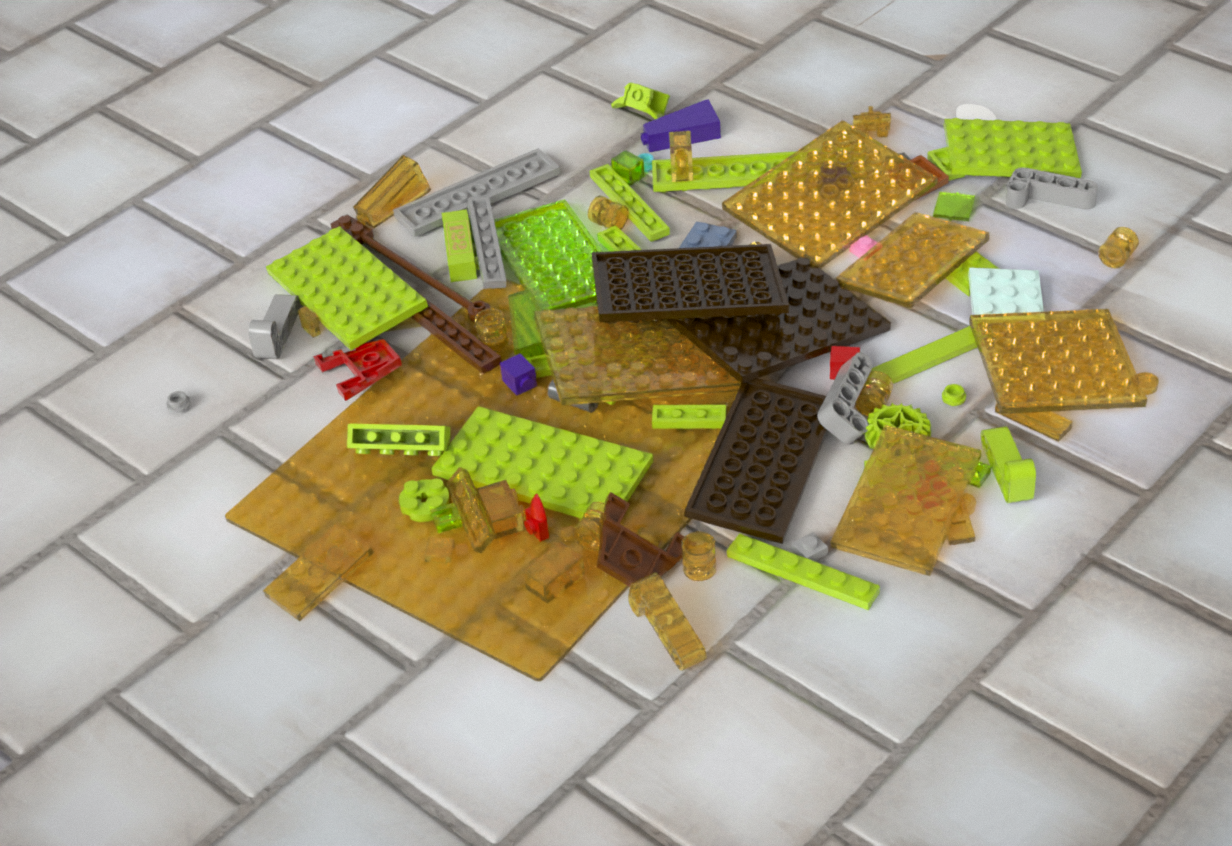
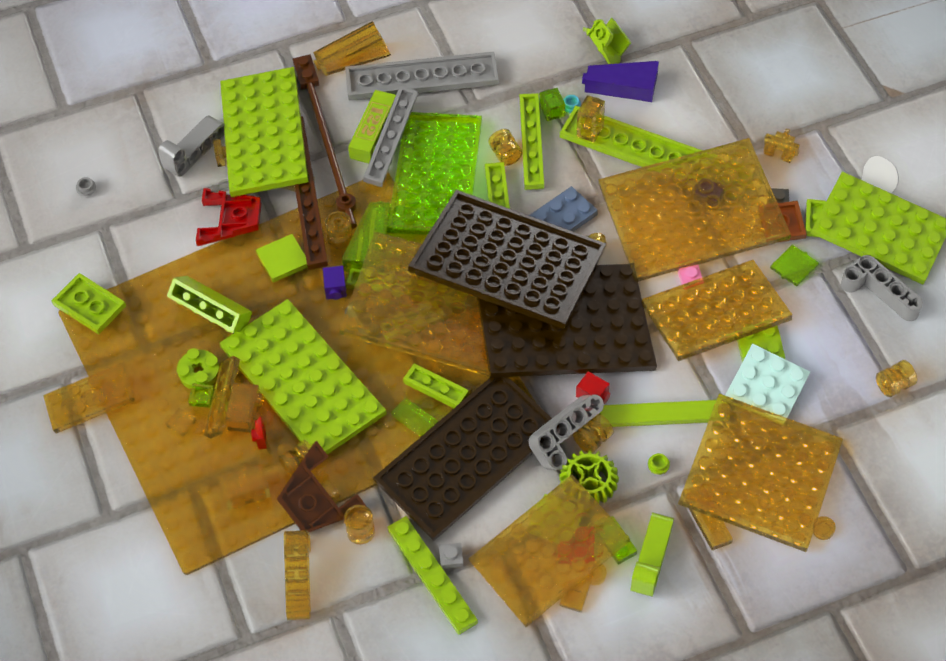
camera: 25 degrees right, 15 degrees up
(259, 490) = (88, 303): none -> lime plate
(445, 378) = (282, 258): none -> lime tile
(685, 450) = (414, 417): none -> clear neon green tile

